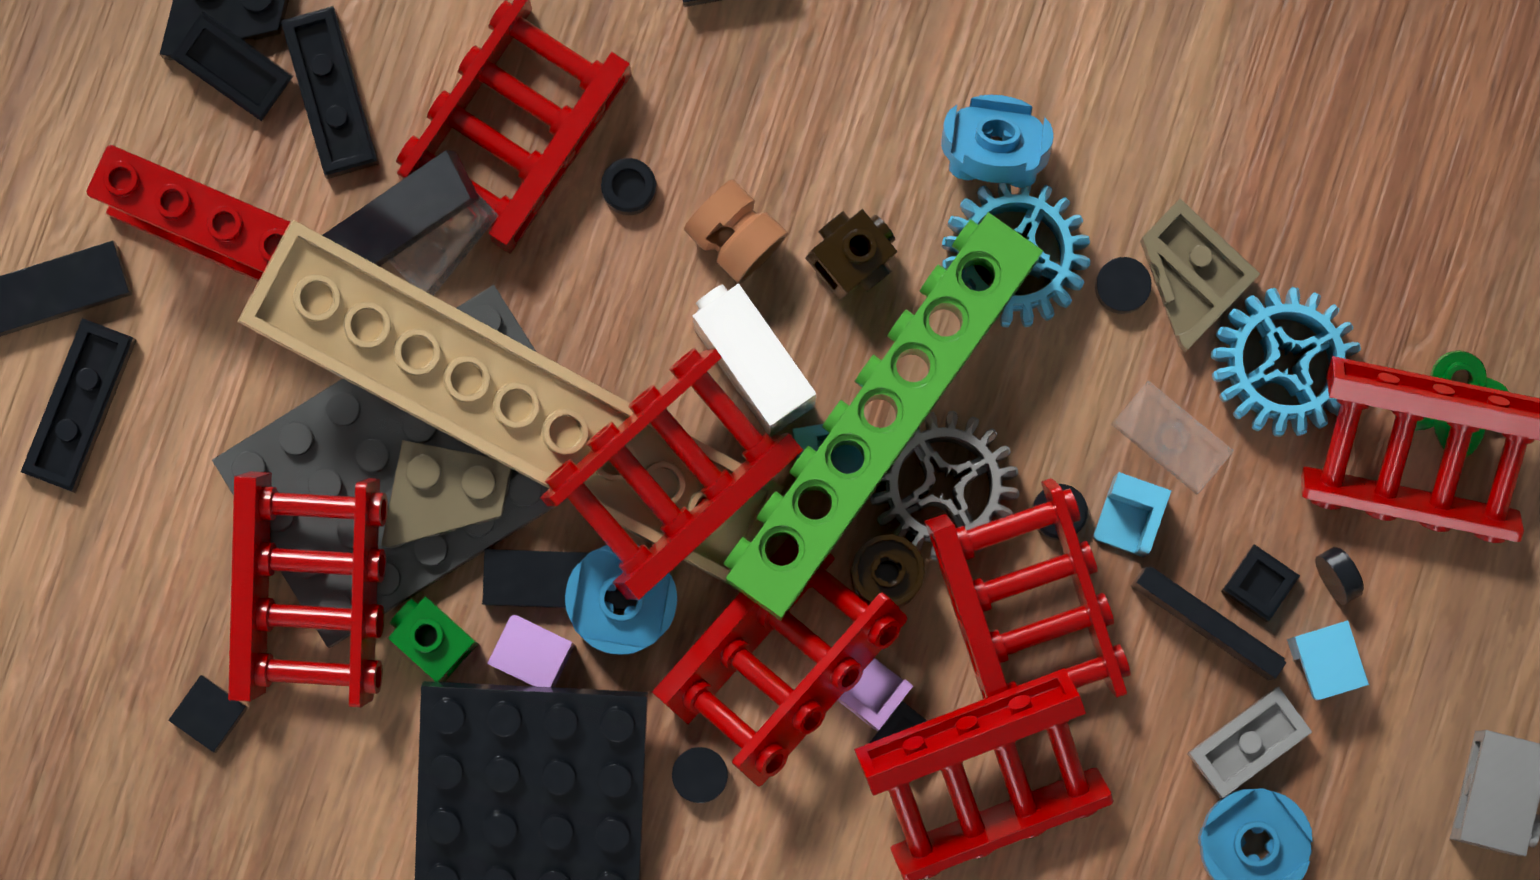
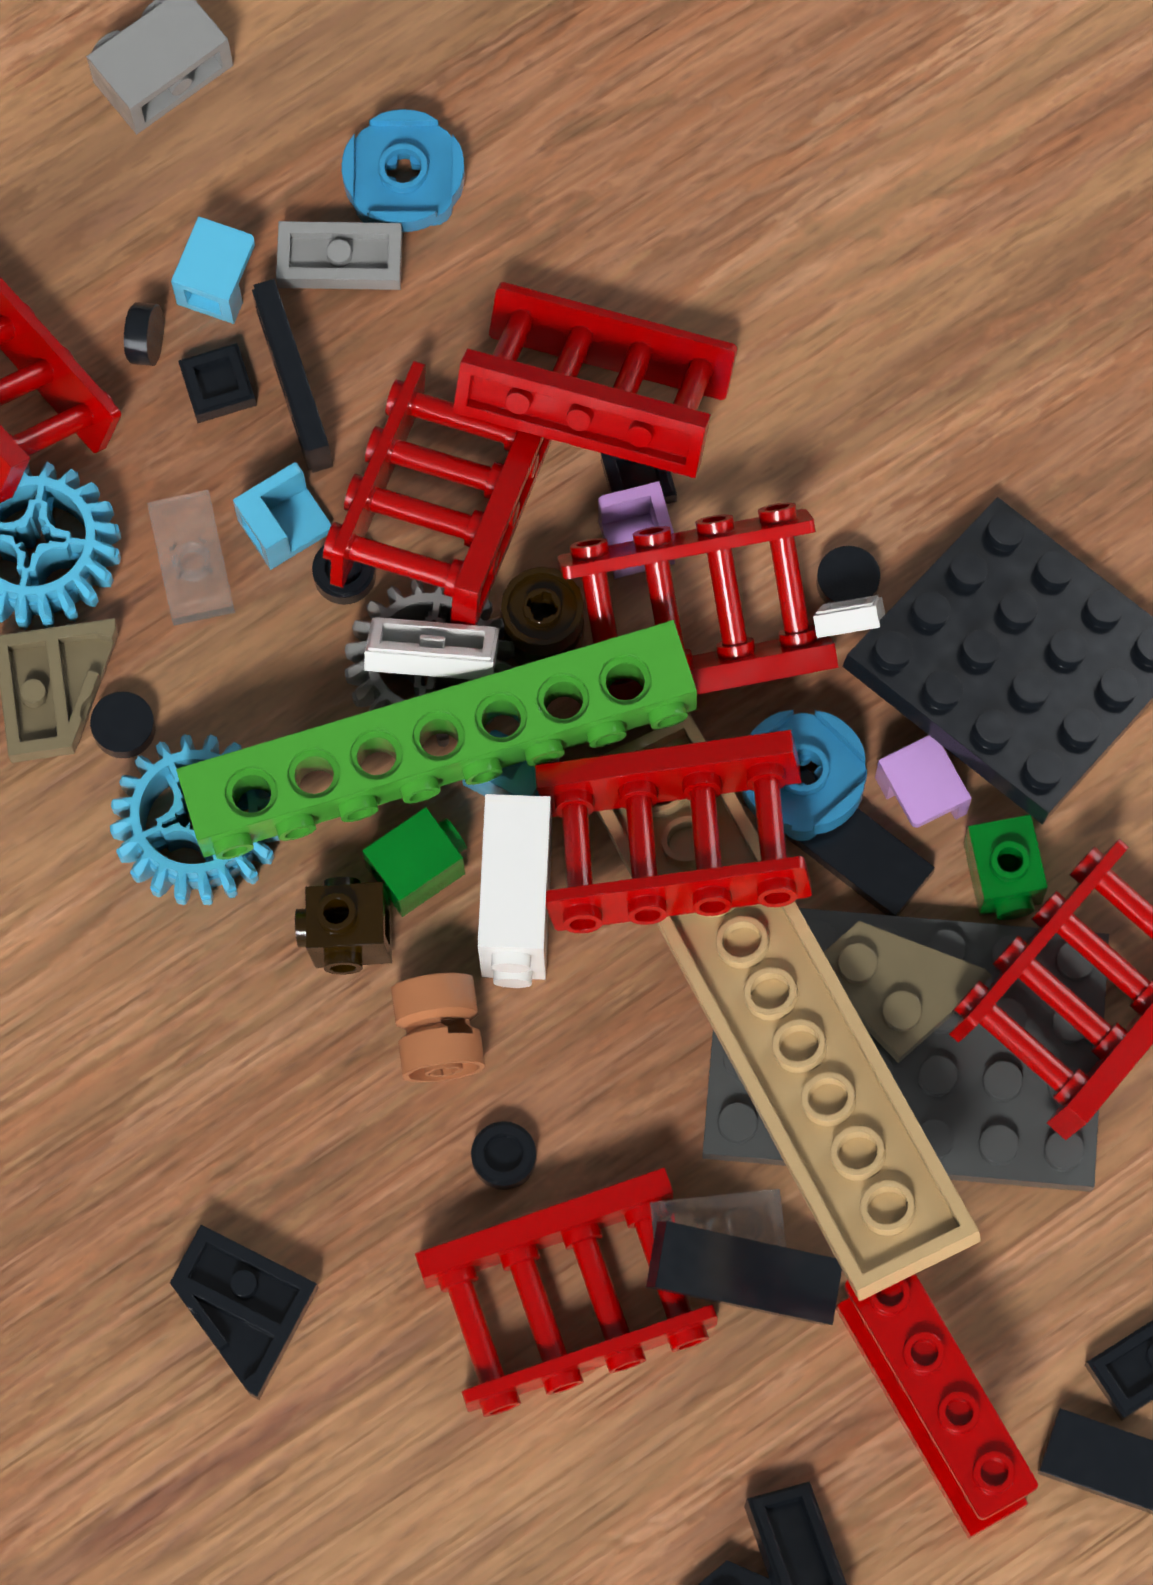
camera: 140 degrees left, 10 degrees down
(329, 92) = (721, 1463): black tile -> none
(672, 736) = (849, 616): none -> white tile
(840, 334) = (416, 860): none -> green brick
(936, 473) = (431, 648): none -> white tile
(1015, 159) = (161, 920): dark azure plate -> none

